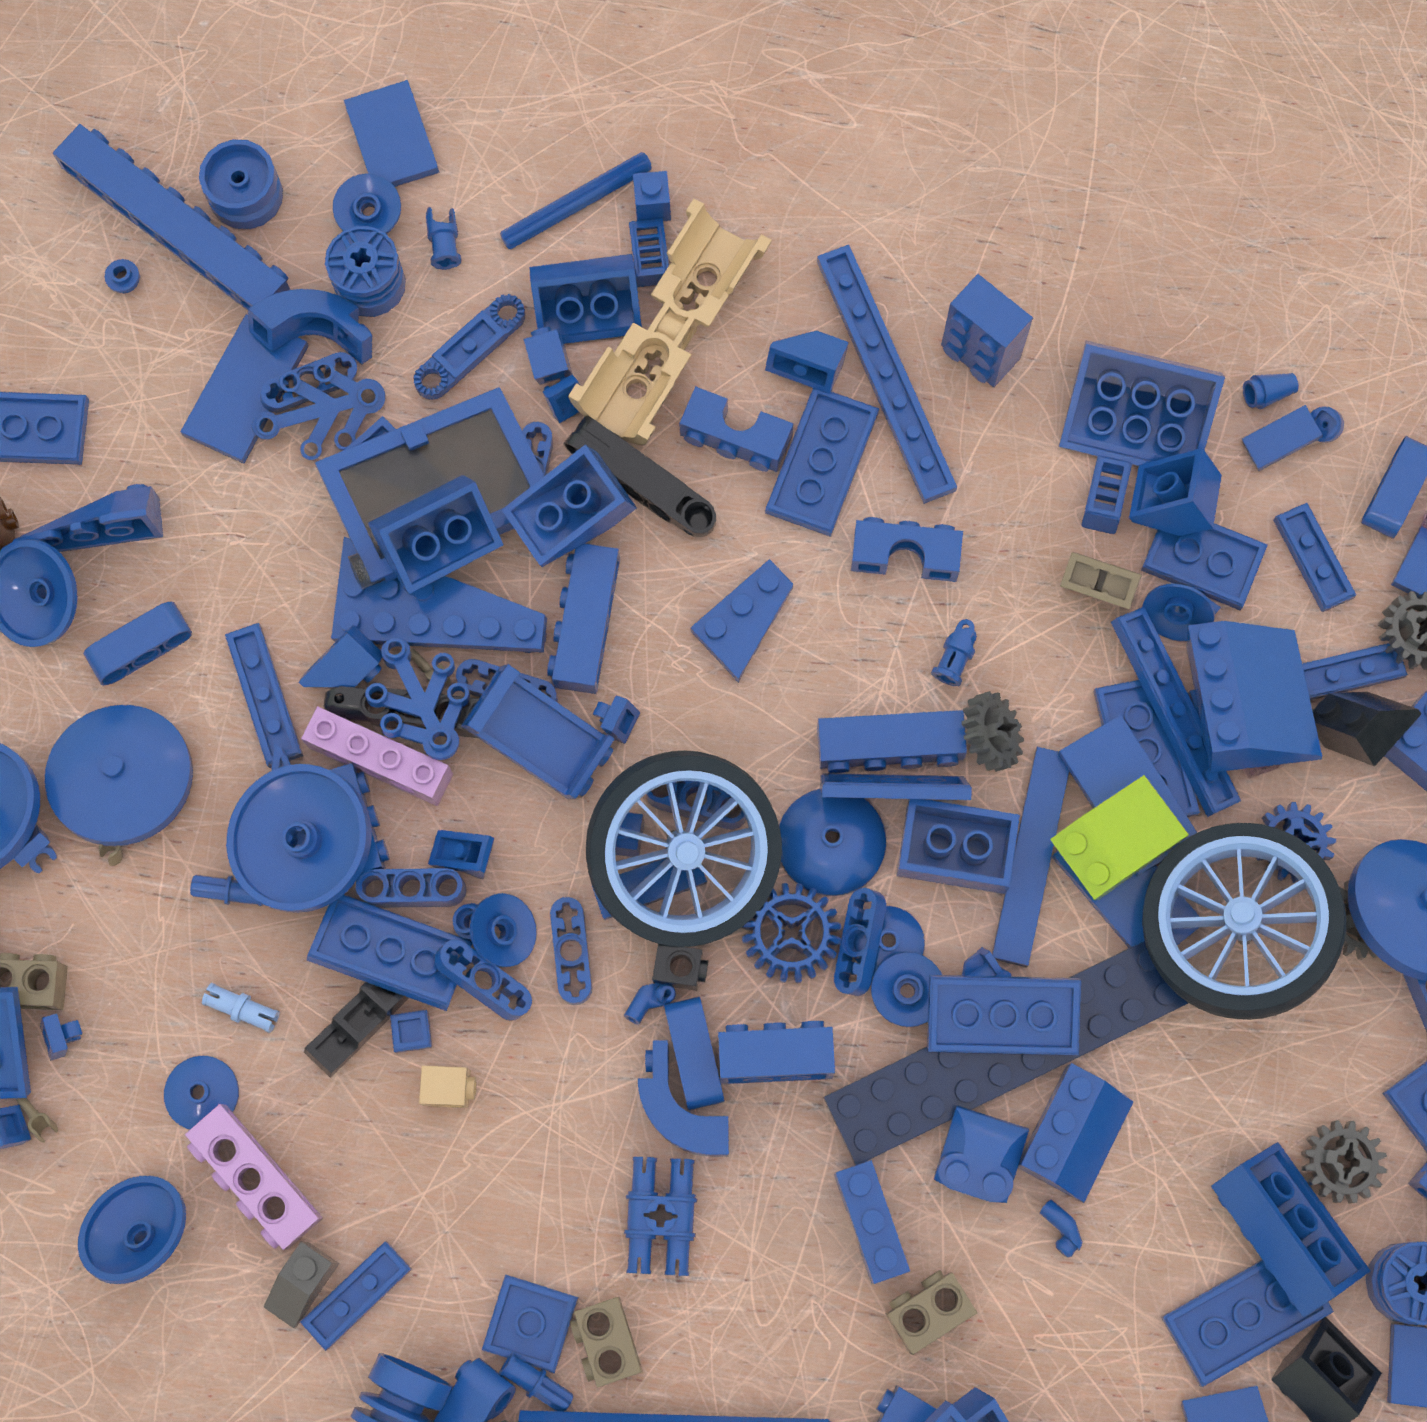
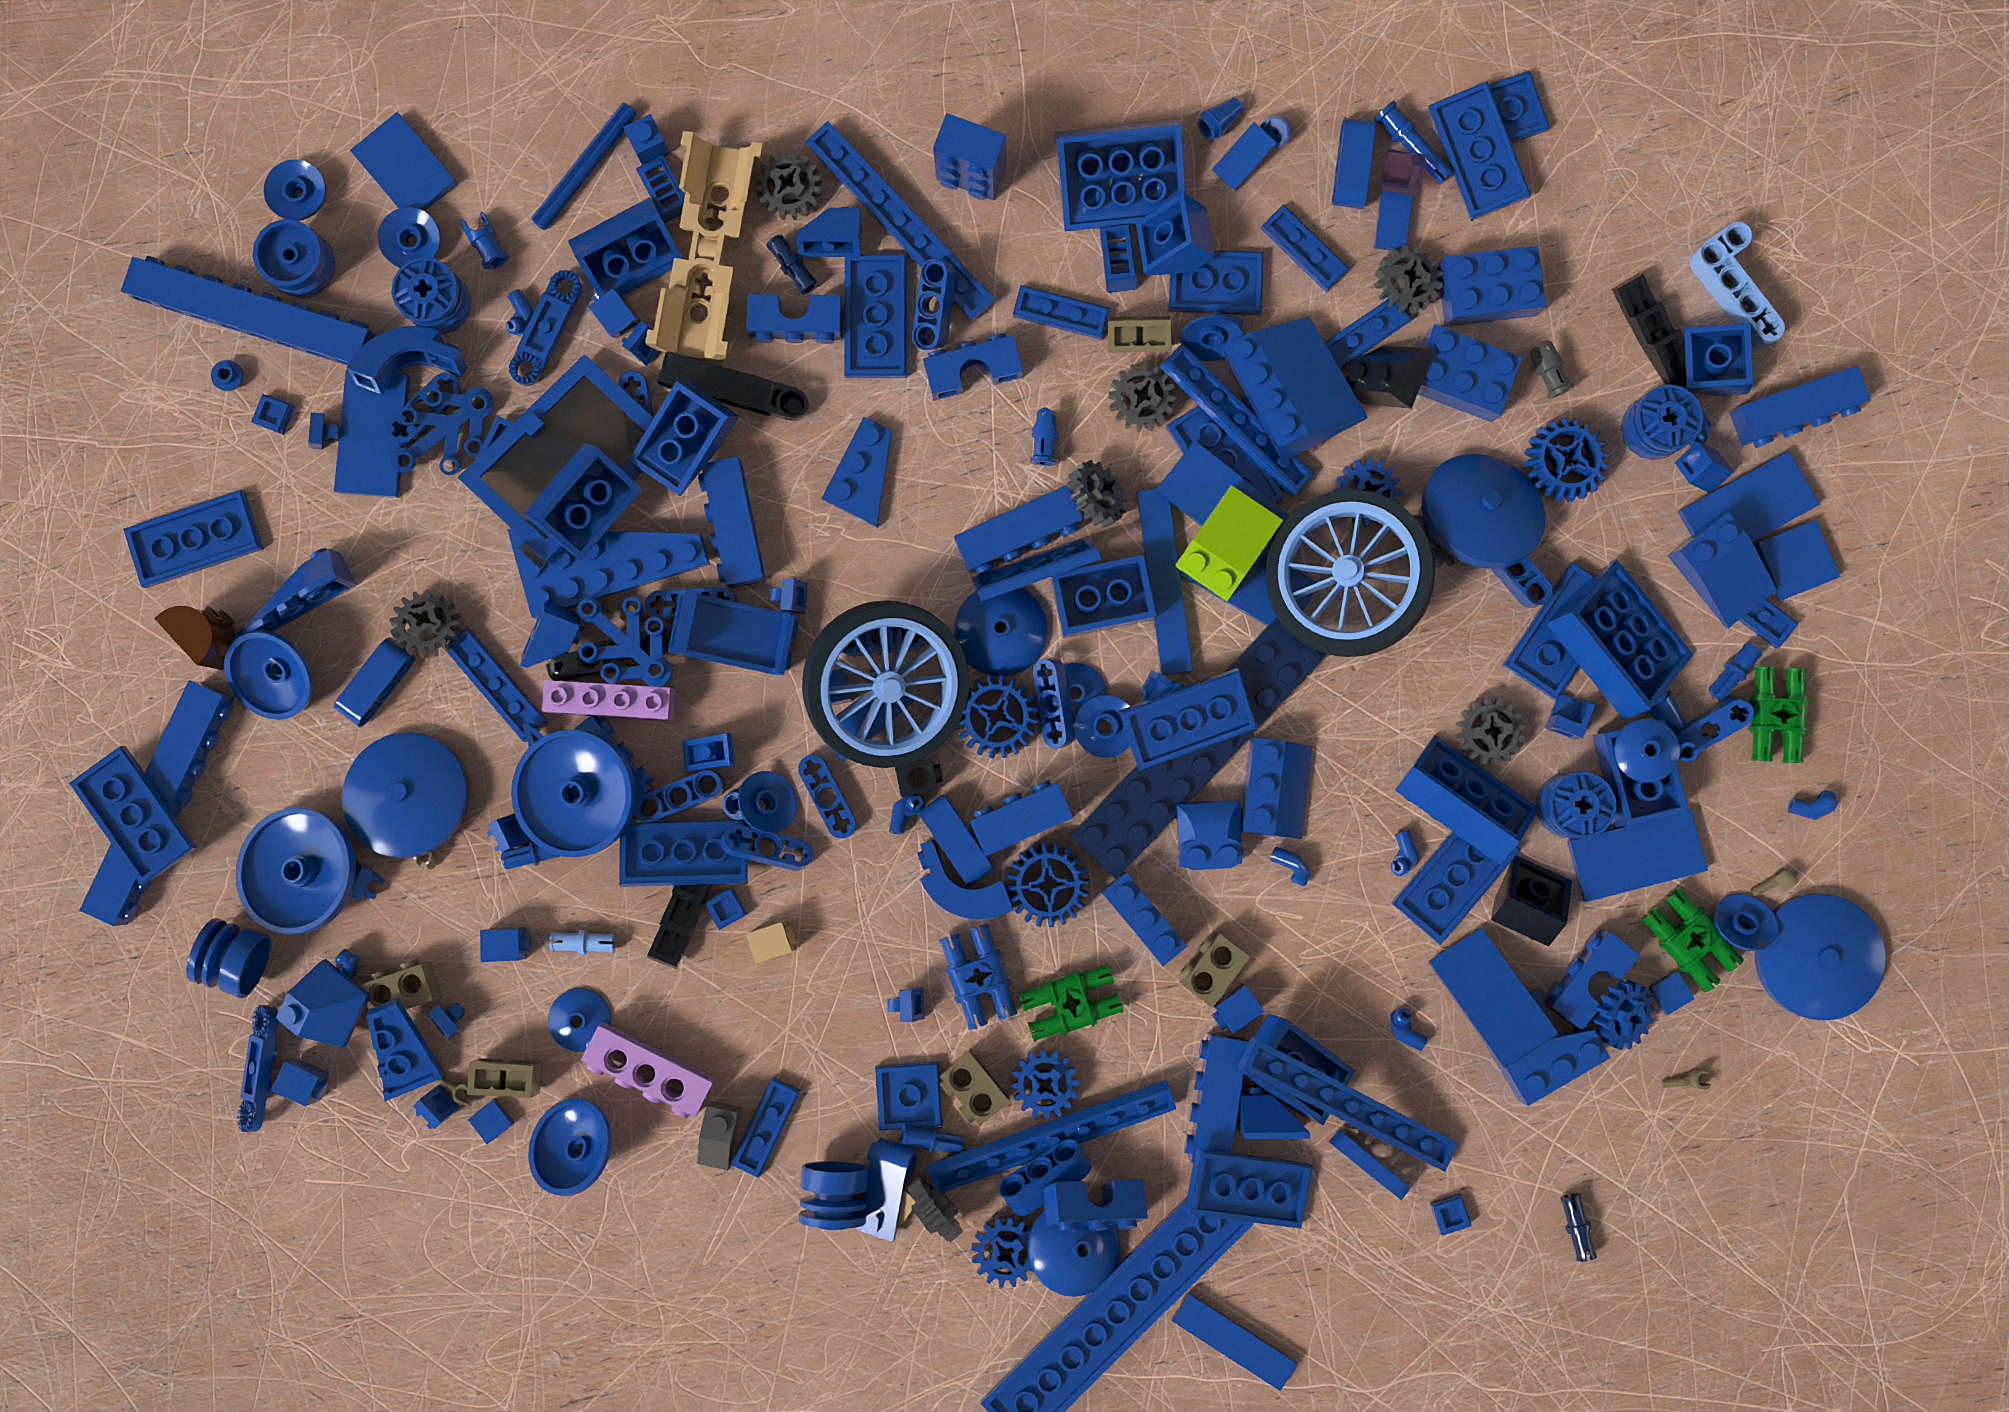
camera: 20 degrees left, 10 degrees up
(58, 1168) = (491, 1121): none -> blue tile
(93, 1123) = (504, 1077): none -> dark tan brick
(151, 331) = (272, 414): none -> blue tile
(155, 976) = (504, 944): none -> blue brick
(193, 366) = (320, 431): none -> blue tile
(210, 857) = (507, 833): none -> blue tile
(216, 602) = (428, 636): none -> dark grey gear
(268, 106) = (284, 182): none -> blue dish
(452, 323) = (522, 315): none -> blue arm
(571, 1217) = (909, 1004): none -> blue tile
(673, 1377) = (1055, 1071): none -> blue gear
(754, 375) = (792, 264): none -> dark blue pin
(767, 1305) = (1086, 1011): none -> green pin
(783, 280) = (794, 174): none -> dark grey gear
(809, 1151) = (1050, 911): none -> blue gear
(889, 451) = (924, 317): none -> blue beam
(939, 1369) = (1236, 1009): none -> blue brick
(1023, 528) = (1060, 312): none -> blue tile
(1087, 659) = (1131, 391): none -> dark grey gear
(1198, 1268) = (1406, 856): none -> blue arm

